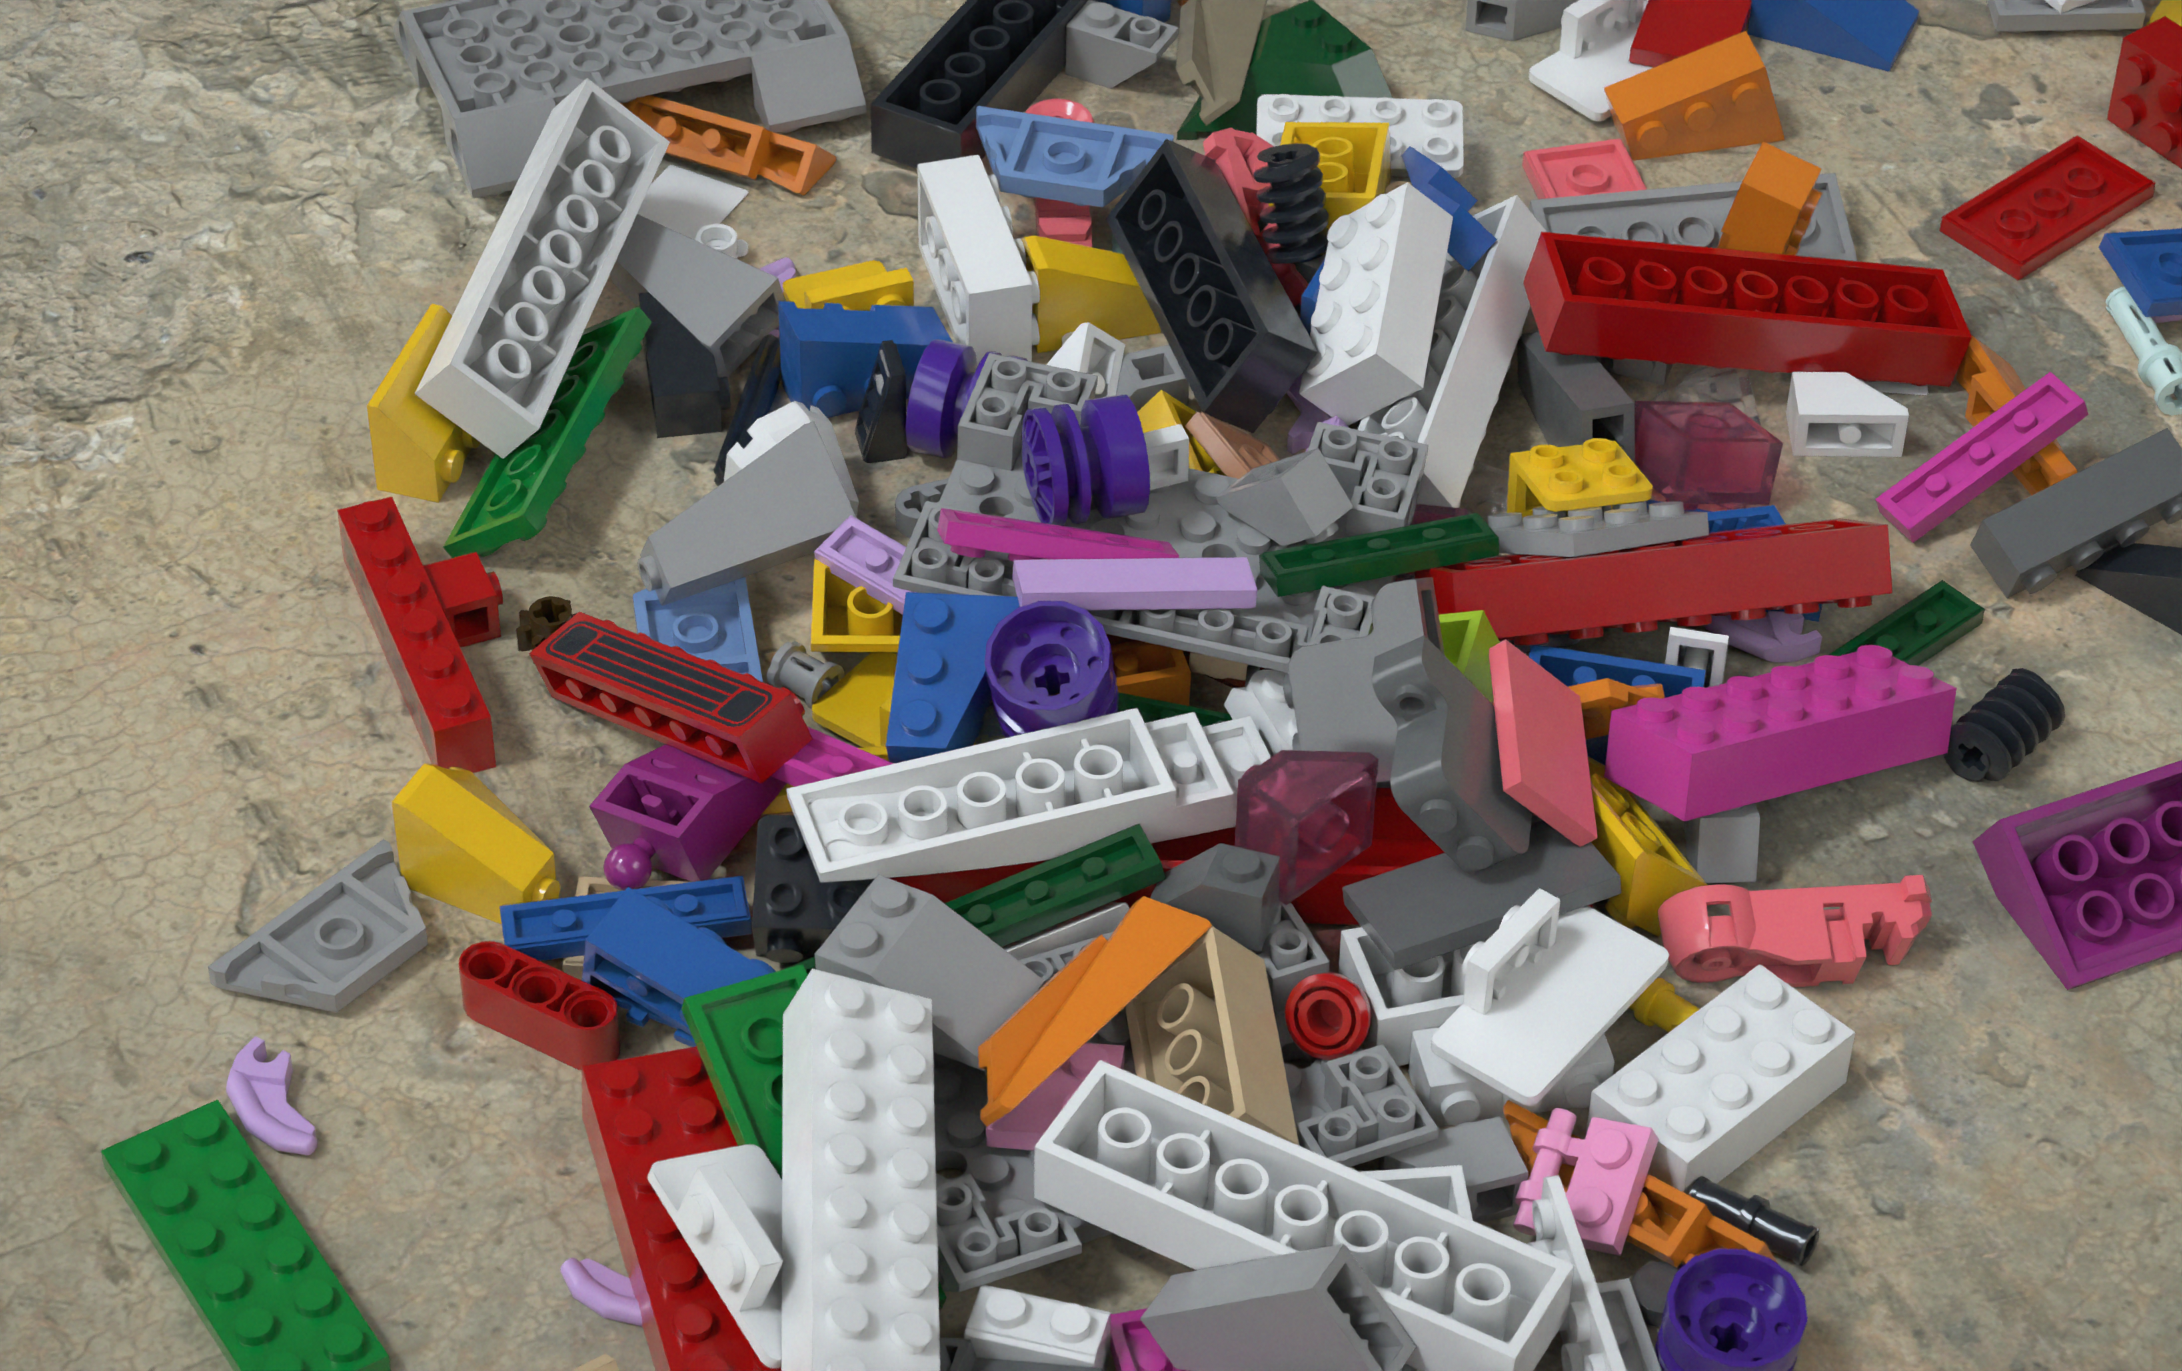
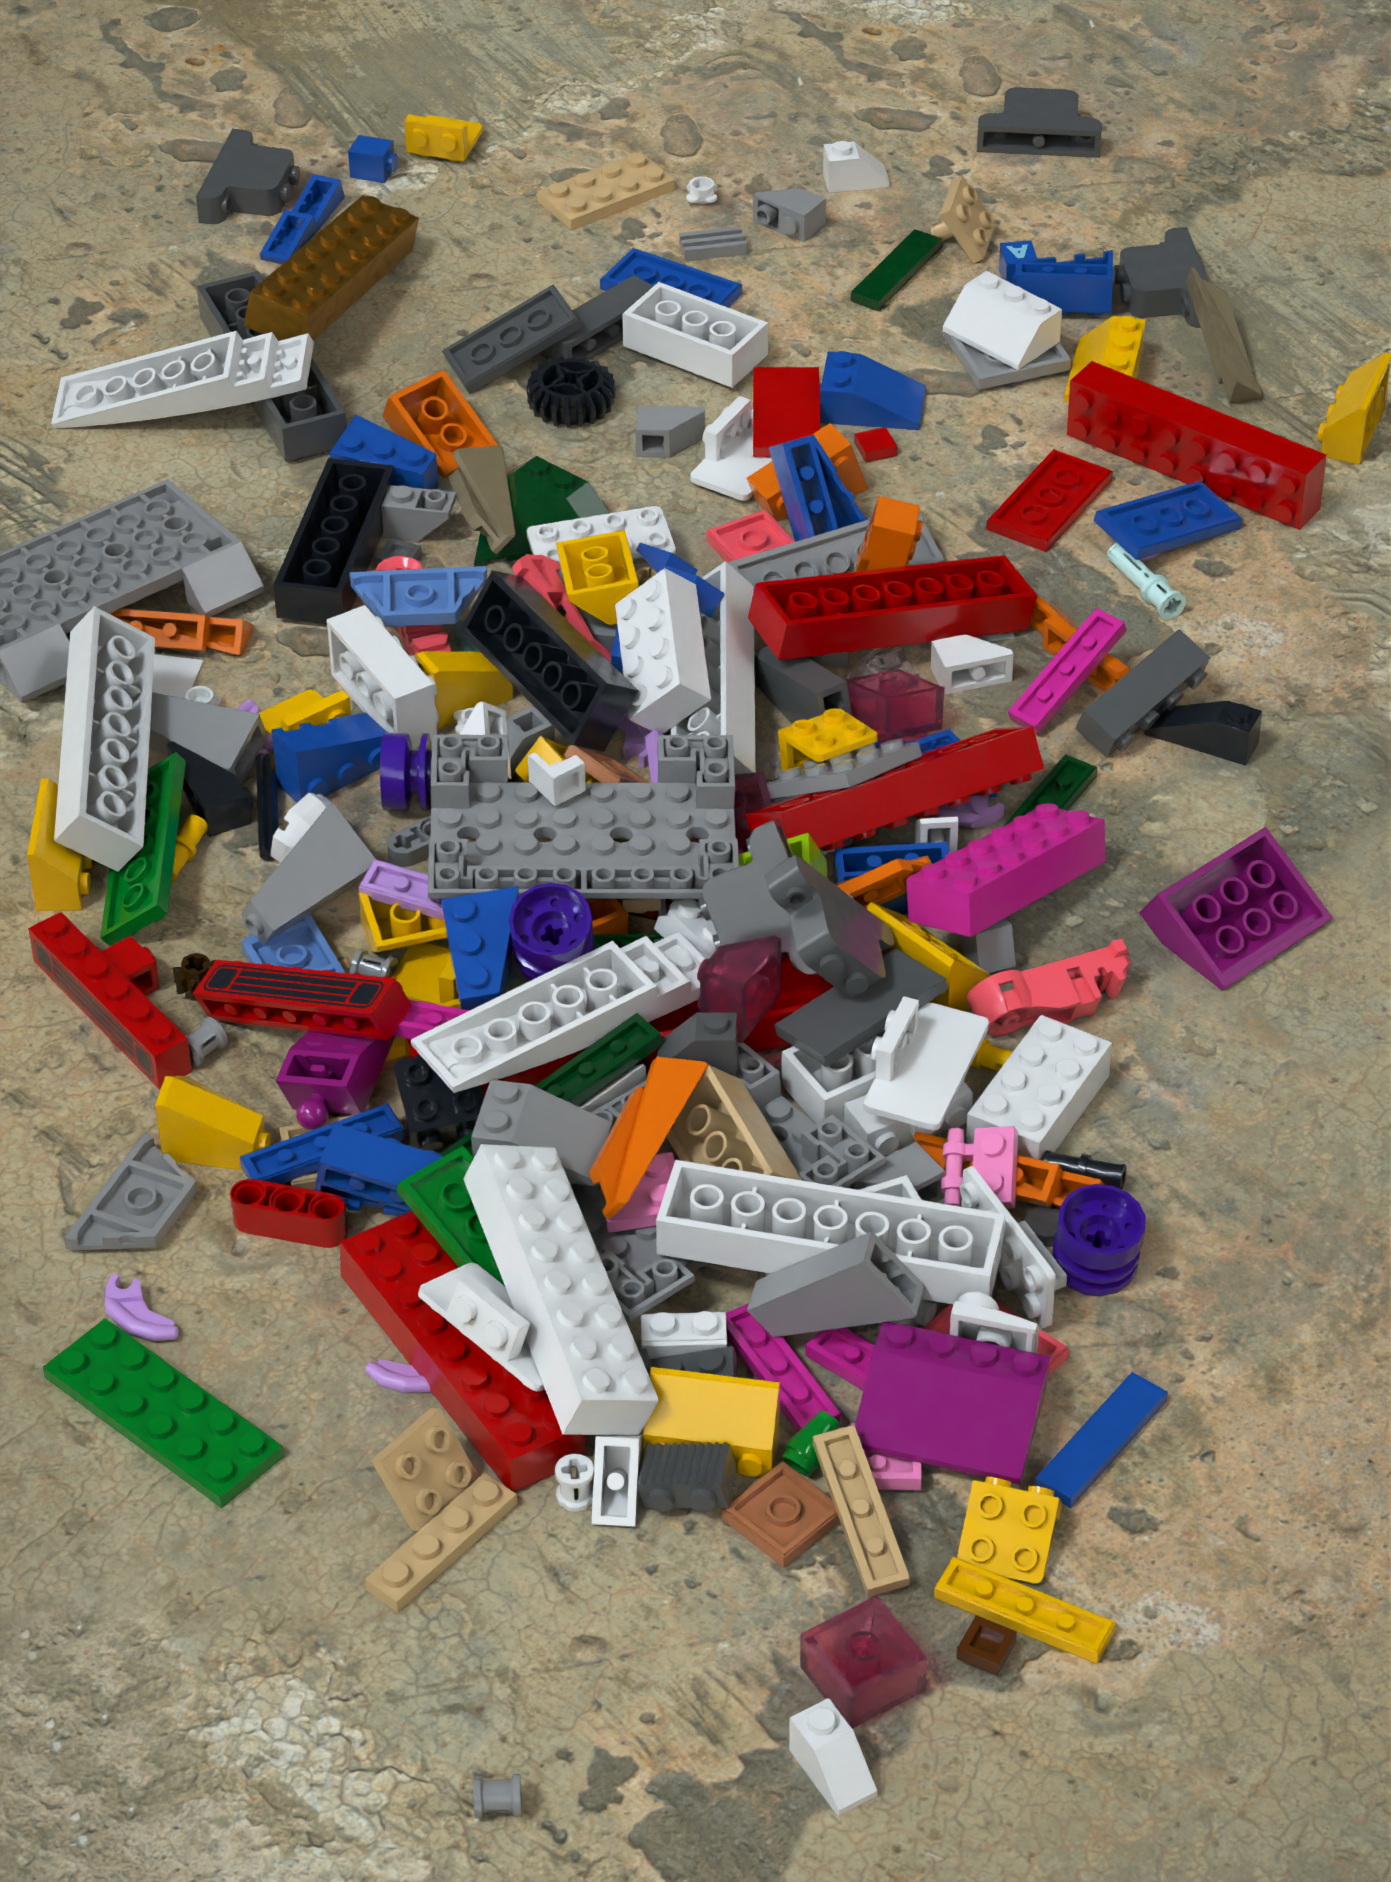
camera: 15 degrees left, 0 degrees up
(523, 726) = (205, 1040): none -> light grey bush
(609, 444) = (186, 842): none -> yellow pin
(883, 410) = (359, 788): black slope -> none
(975, 533) = (508, 850): dark pink plate -> none
(1082, 92) = (398, 548): none -> flat silver tile
(1095, 459) = (524, 791): dark purple wheel -> none
(1138, 583) = (587, 862): lavender tile -> none
(1289, 499) = (658, 788): light grey slope -> none
(1295, 201) = (589, 595): black piece -> none
(1328, 1015) = (792, 1105): red brick -> none
(1378, 554) = (725, 812): dark green tile -> none
(1542, 743) = (875, 907): coral tile -> none
(1688, 118) = (811, 489): none -> blue wedge
(1816, 79) = (875, 444): none -> red tile
(2004, 727) = (1135, 837): black piece -> none

